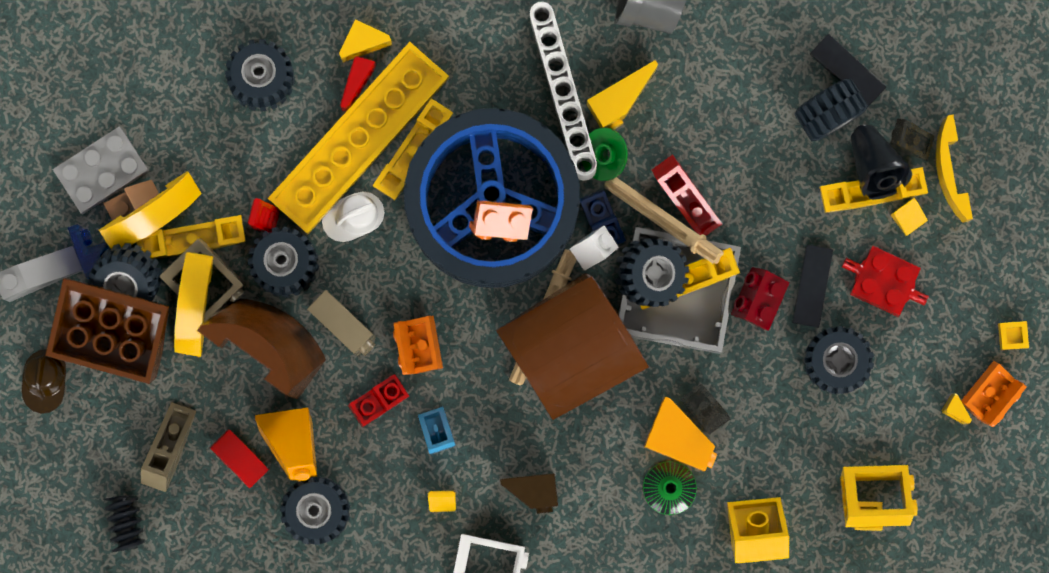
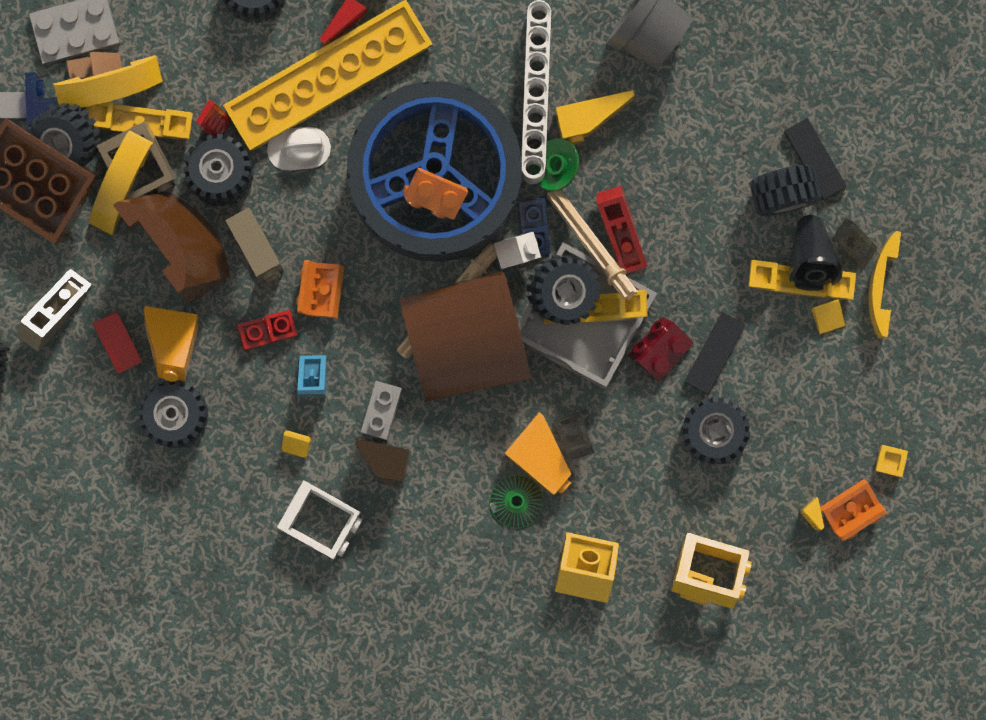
camera: 15 degrees right, 0 degrees up
(393, 176) = (347, 121): yellow slope -> none
(514, 443) = (381, 410): none -> light grey brick
(885, 281) = (785, 370): red plate -> none

